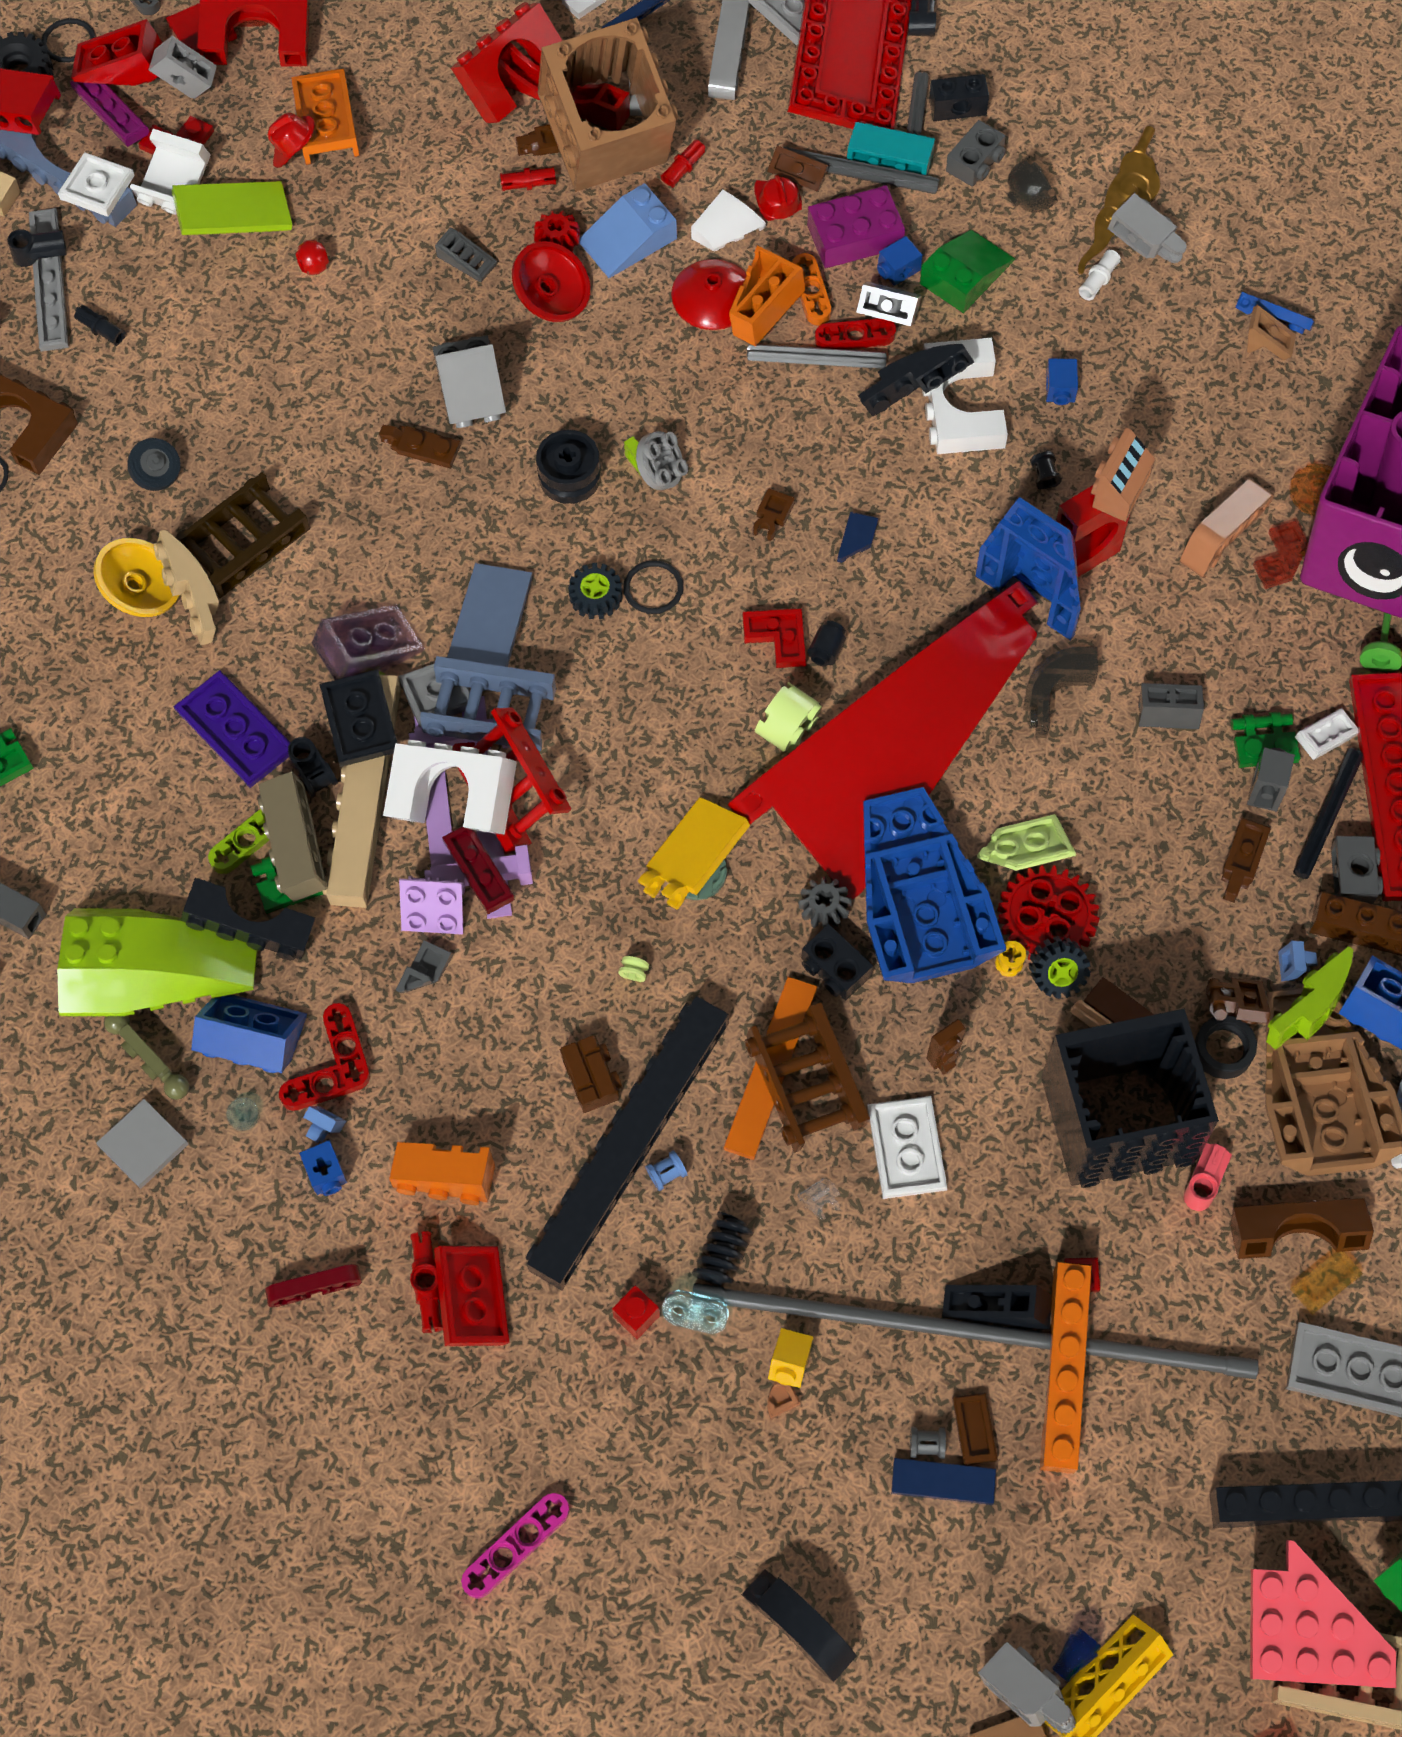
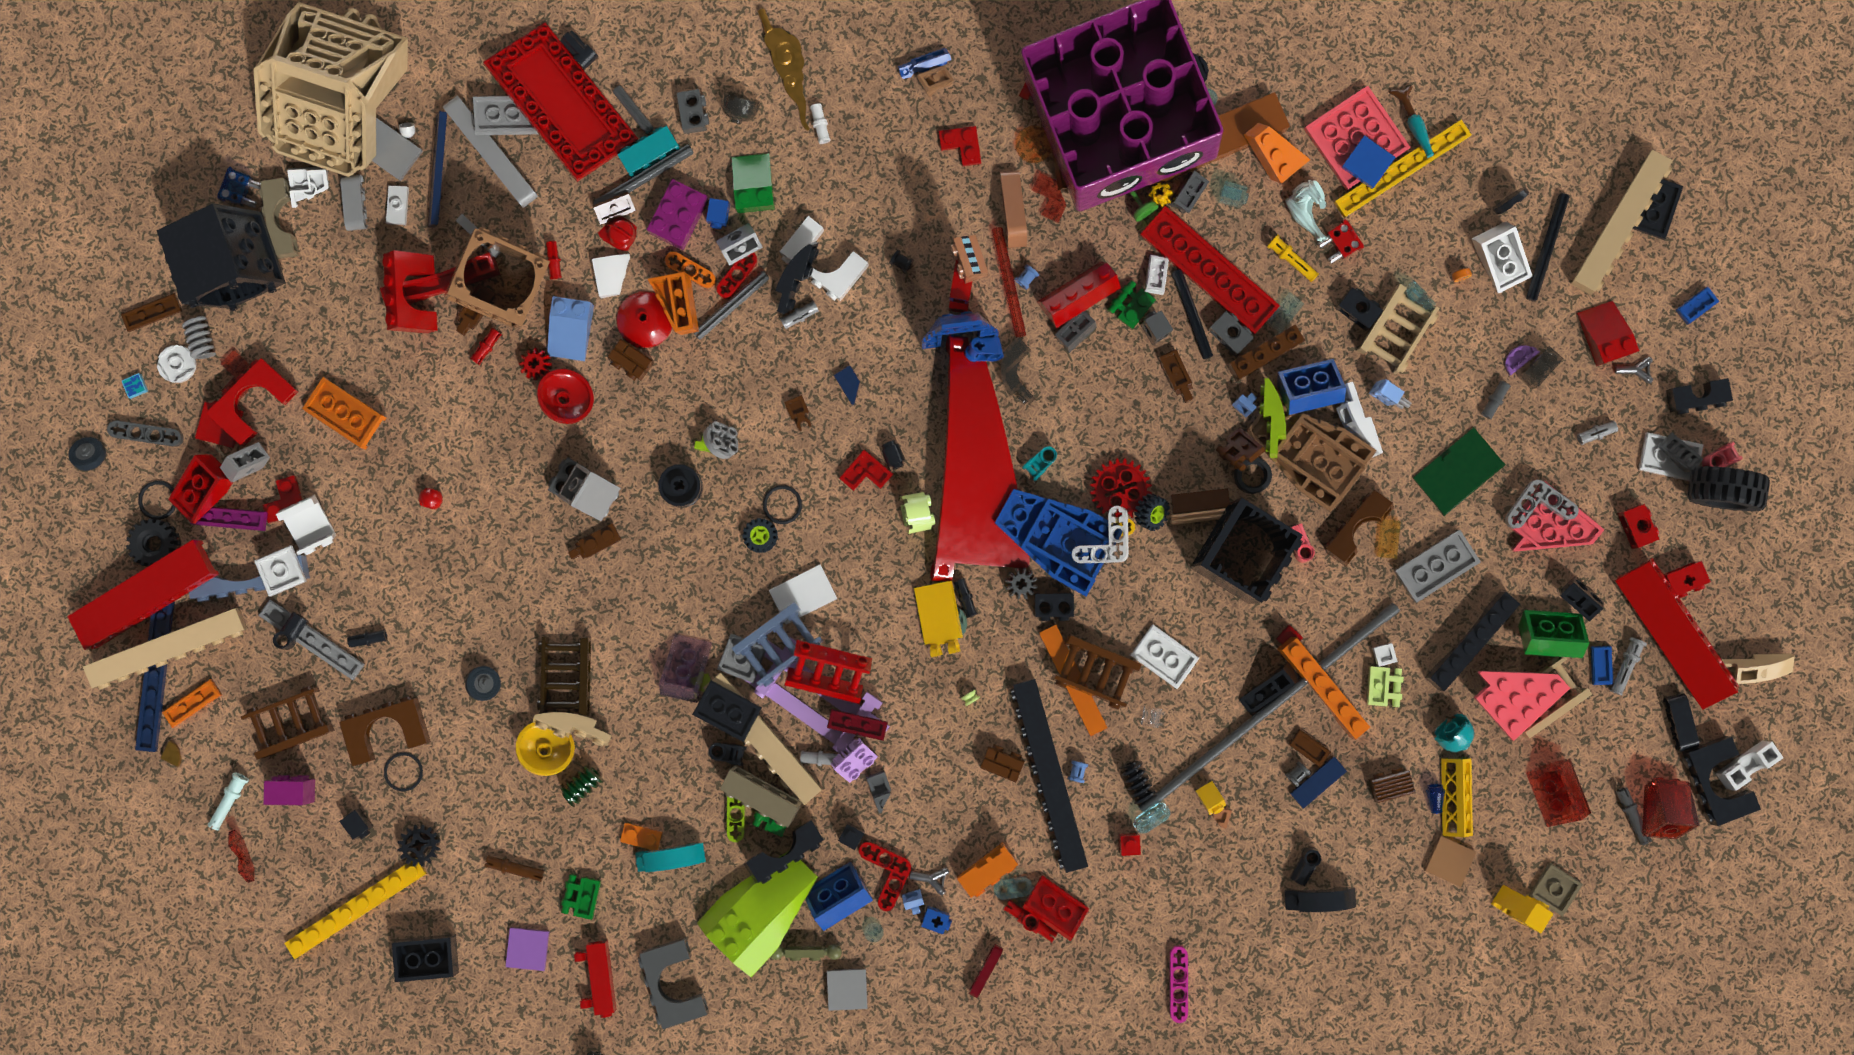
camera: 50 degrees left, 20 degrees up
(125, 765) = (641, 836): none -> orange plate
(127, 652) = (581, 786): none -> dark green piece
(130, 809) = (670, 858): none -> teal arch
(231, 208) = (360, 513): lime tile -> none
(234, 728) = (670, 769): dark purple tile -> none
(289, 136) = (346, 446): red piece -> none
(338, 981) = (851, 836): none -> black brick
(371, 1123) = (931, 879): none -> flat silver piece
(393, 862) = (817, 758): none -> light grey pin
(417, 767) = (820, 683): white arch -> none
(450, 1225) = (1013, 889): none -> clear light blue plate
(452, 243) = (486, 421): dark grey slope -> none
(490, 615) = (726, 598): sand blue tile -> none
(582, 692) = (807, 590): none -> white tile
(655, 312) = (630, 360): none -> reddish brown brick
(745, 861) = (965, 598): none -> black pin
(817, 1565) = (1305, 868): none -> black piece
(859, 420) = (799, 315): none -> light grey pin
(946, 1046) = (1144, 601): reddish brown hinge -> none
(959, 97) = (650, 86): black brick -> none
(969, 951) = (1111, 548): none -> white beam
(983, 801) = (1039, 463): none -> teal piece
(1026, 1689) = (1433, 833): light grey hinge -> none
(1028, 844) = (1080, 464): yellowish green tile -> none
(1034, 1578) = (1391, 785): none -> reddish brown brick
(1046, 625) = (984, 349): none -> blue piece
(1061, 381) = (862, 204): blue brick -> none
(1139, 1440) = (1379, 686): none -> yellowish green plate
(1143, 596) = (1008, 281): none -> clear red axle
(1147, 230) = (819, 75): light grey hinge -> none
(1171, 605) = (1026, 277): none -> medium blue bush
(1181, 1598) = (1458, 731): none -> teal cylinder
(1184, 1410) = (1384, 654): none -> white plate
(1215, 667) = (1080, 293): none -> red slope
(1243, 422) = (965, 139): none -> red plate

